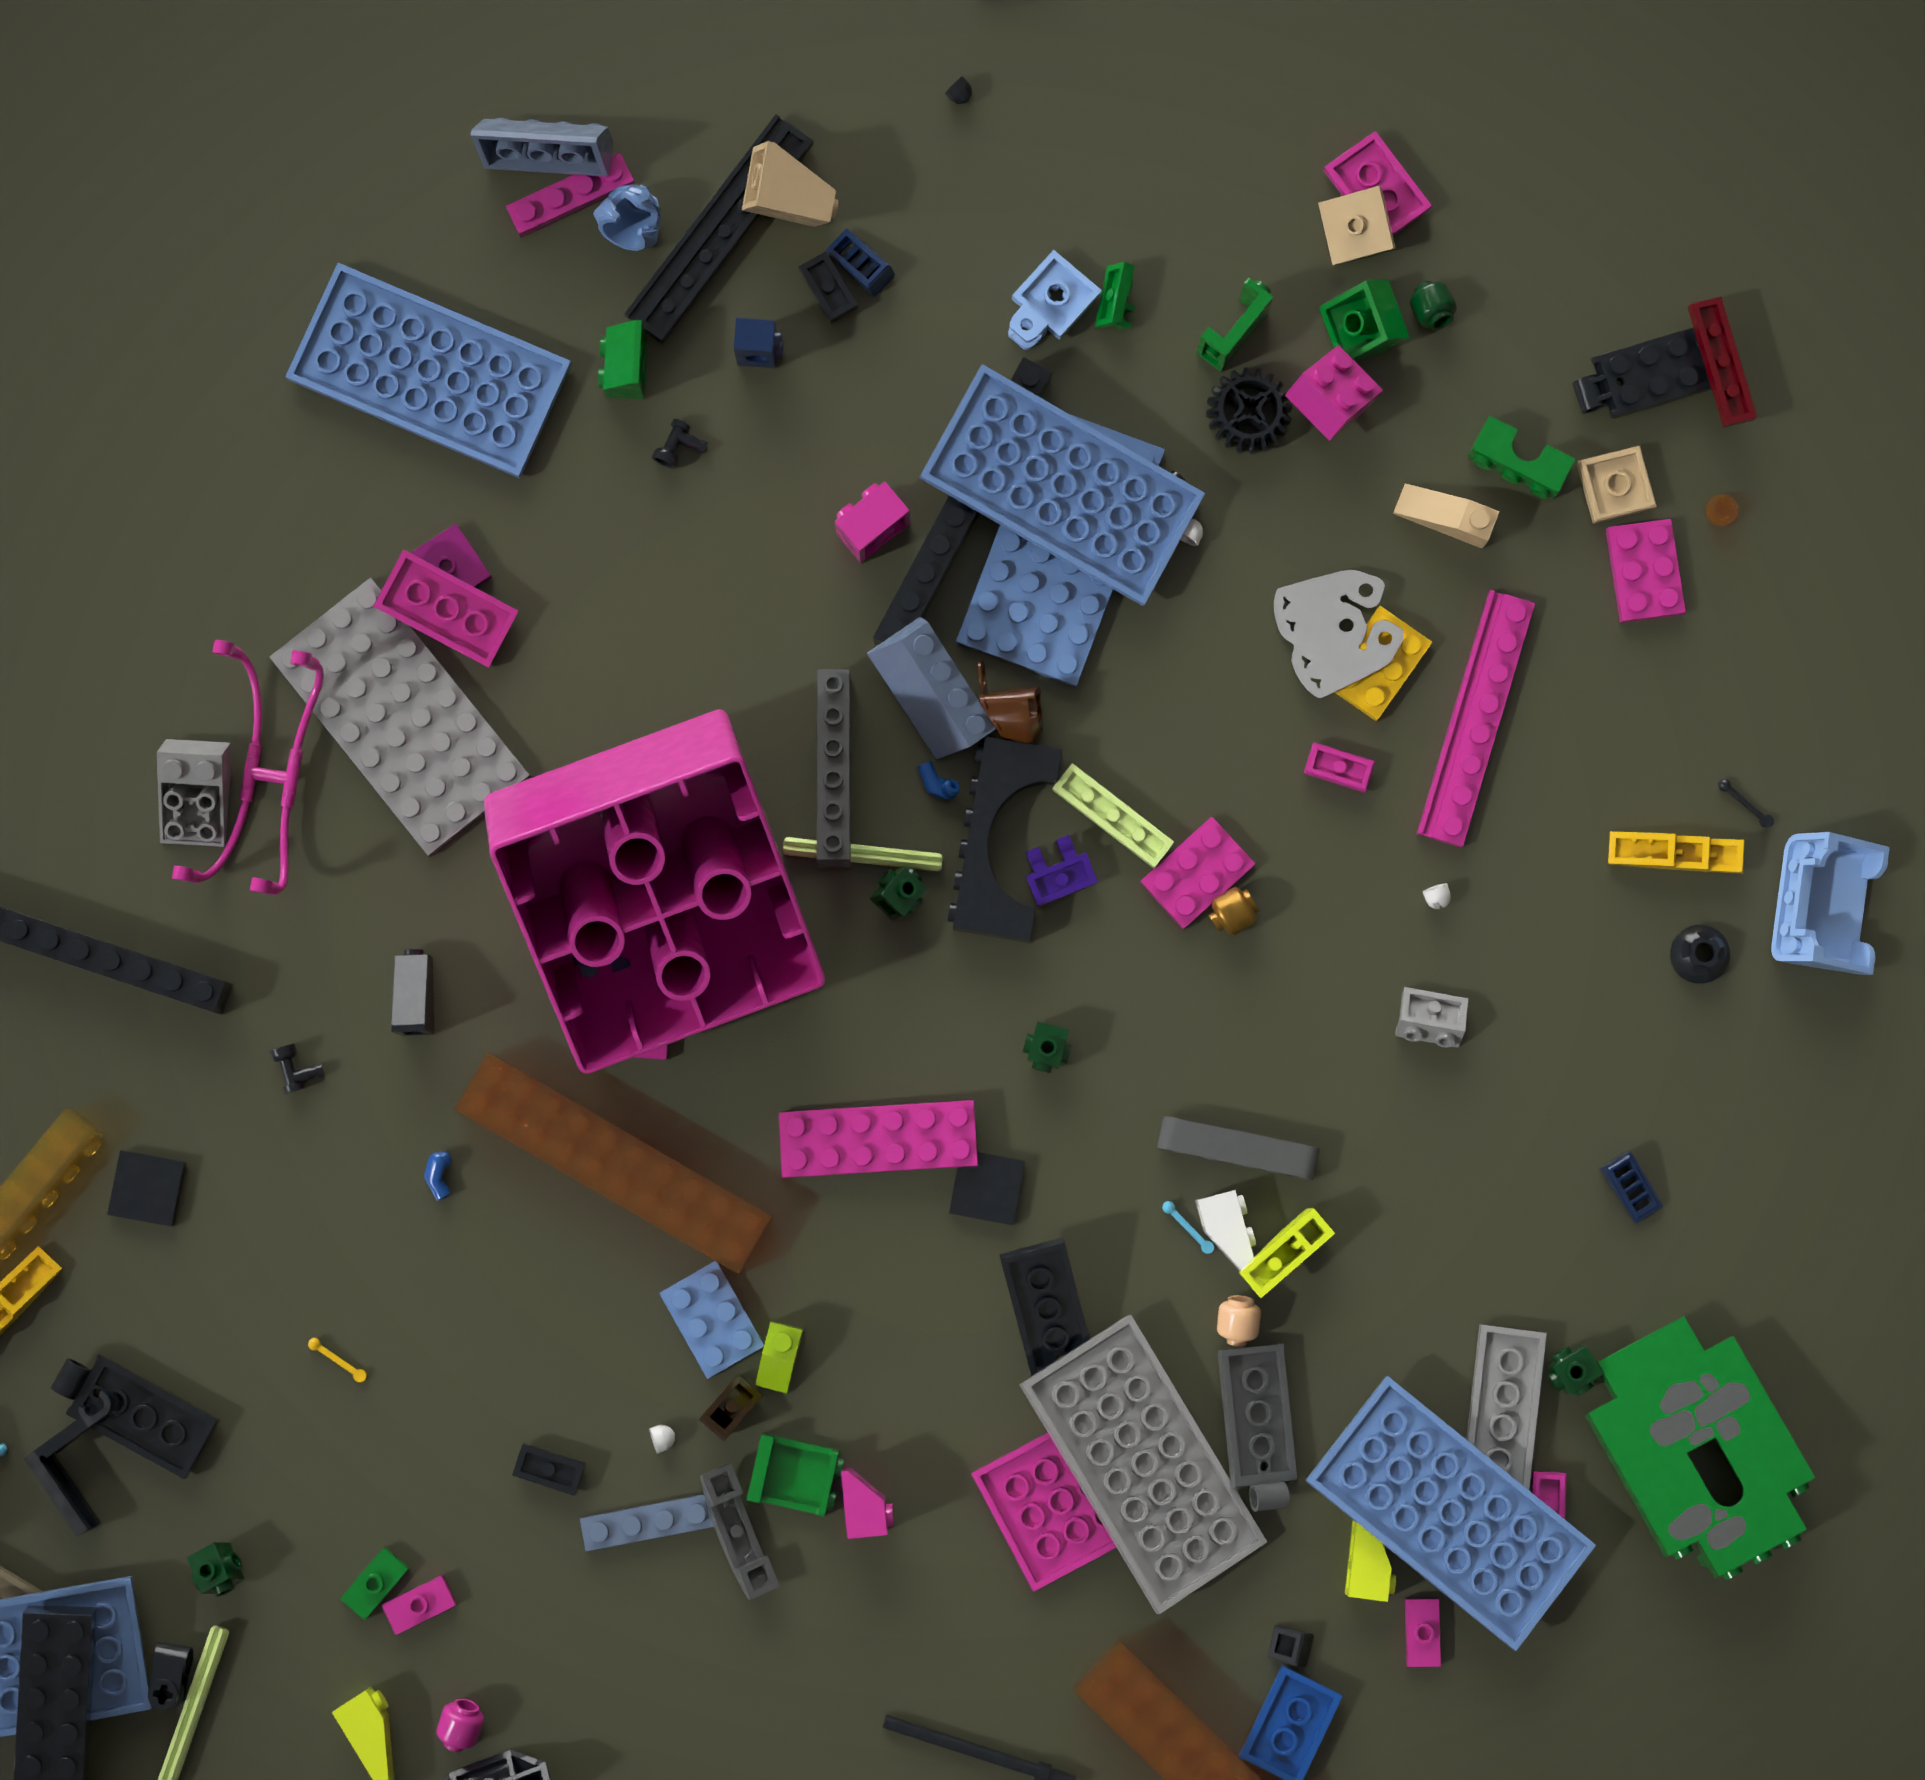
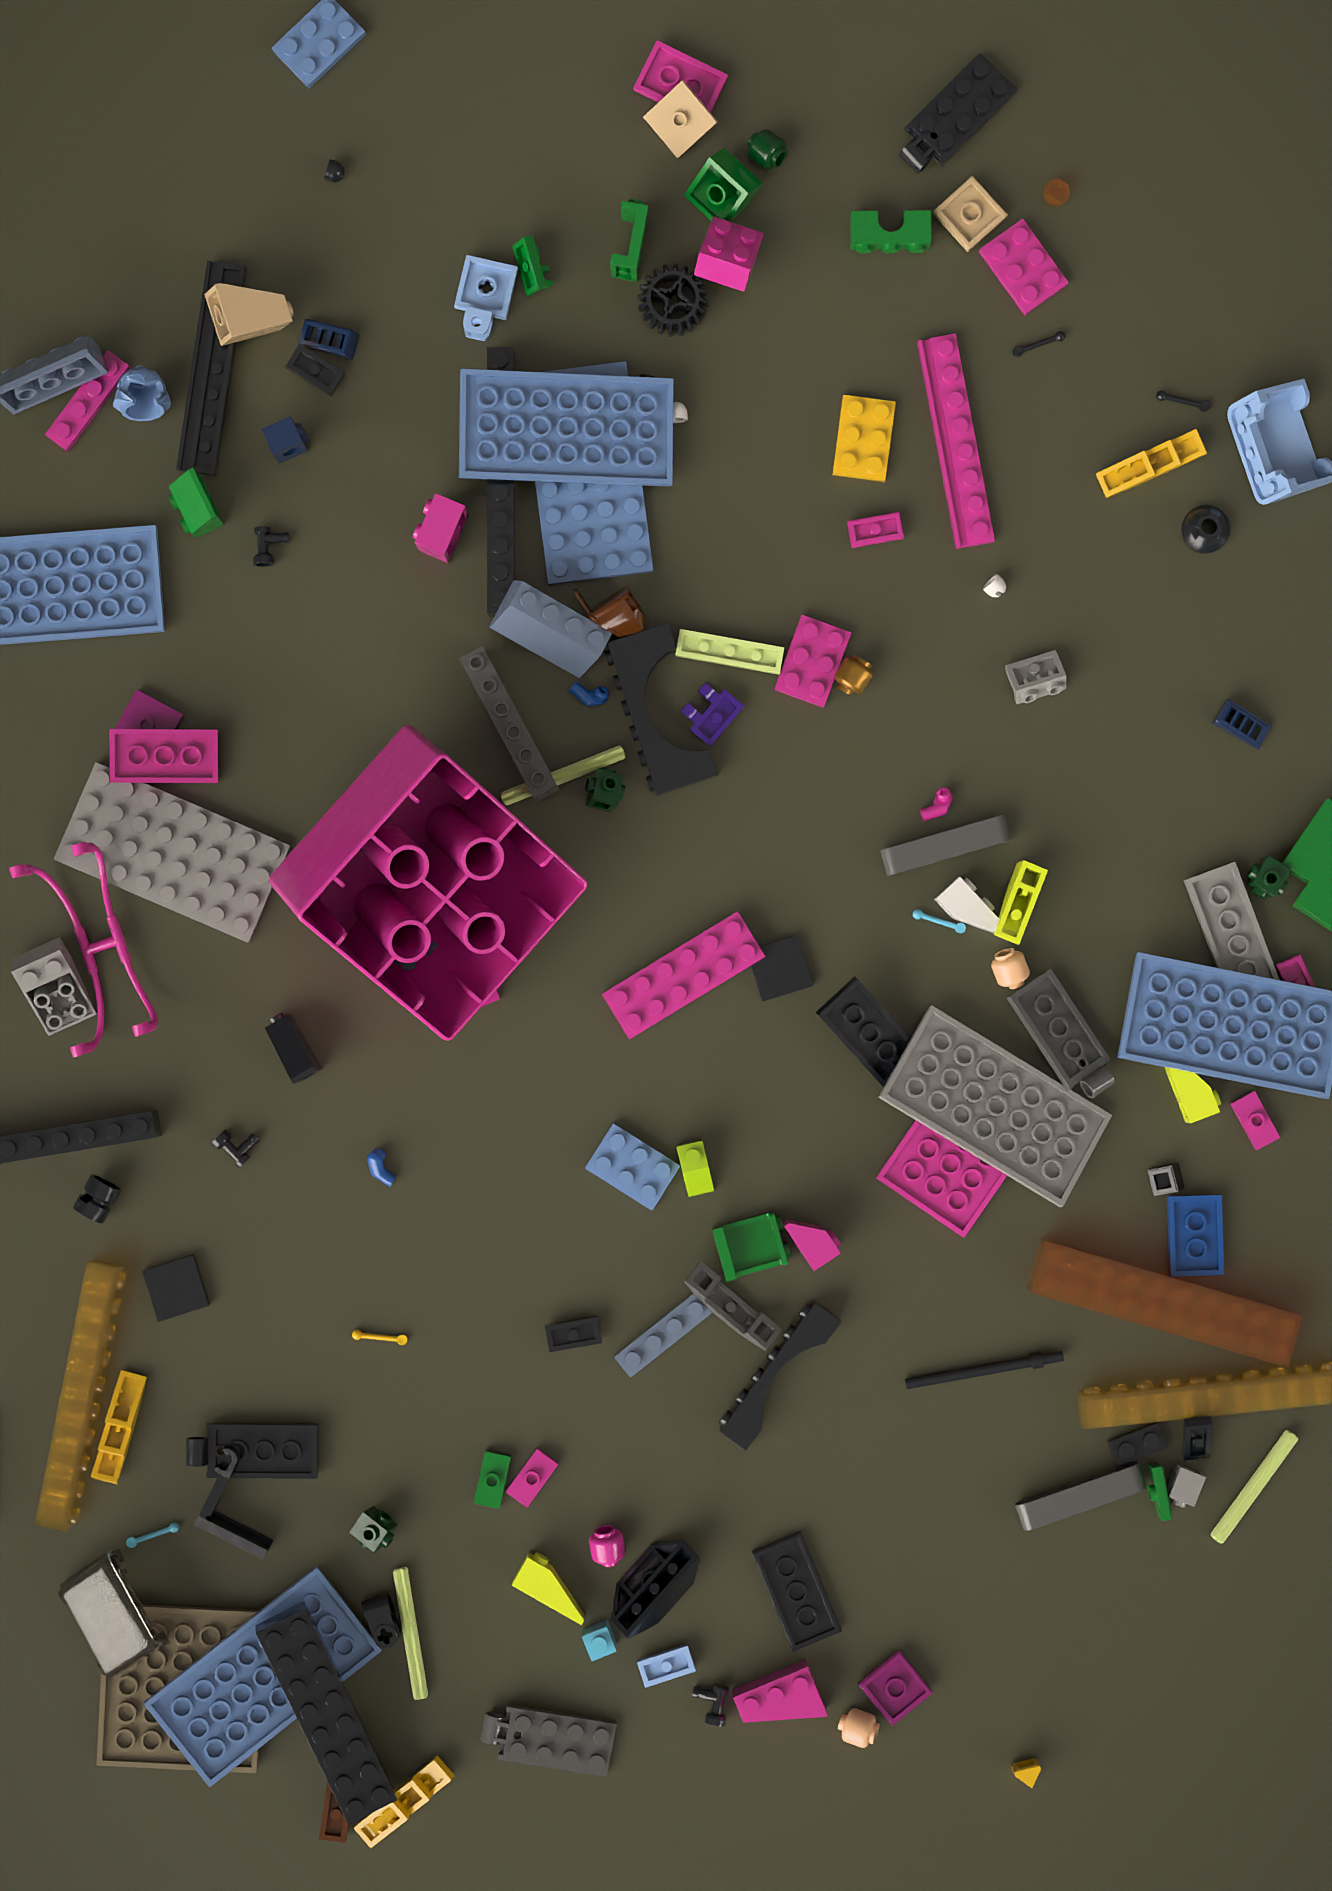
camera: 25 degrees left, 5 degrees up
(115, 1045) = (96, 1200): none -> black wheel
(614, 1163) = (502, 1092): clear orange brick -> none
(662, 1437) = (642, 1269): white hinge -> none
(730, 1407) = (680, 1222): dark brown slope -> none
(811, 1605) = (811, 1330): none -> black arch
(1051, 1035) = (774, 835): dark green brick -> none
(1254, 1102) = (940, 805): none -> dark pink arm
(1317, 634) = (811, 442): light grey piece -> none
(1447, 514) = (858, 301): tan slope -> none
(1593, 657) = (1018, 350): none -> black hinge
(1722, 362) = (1001, 81): dark red plate -> none

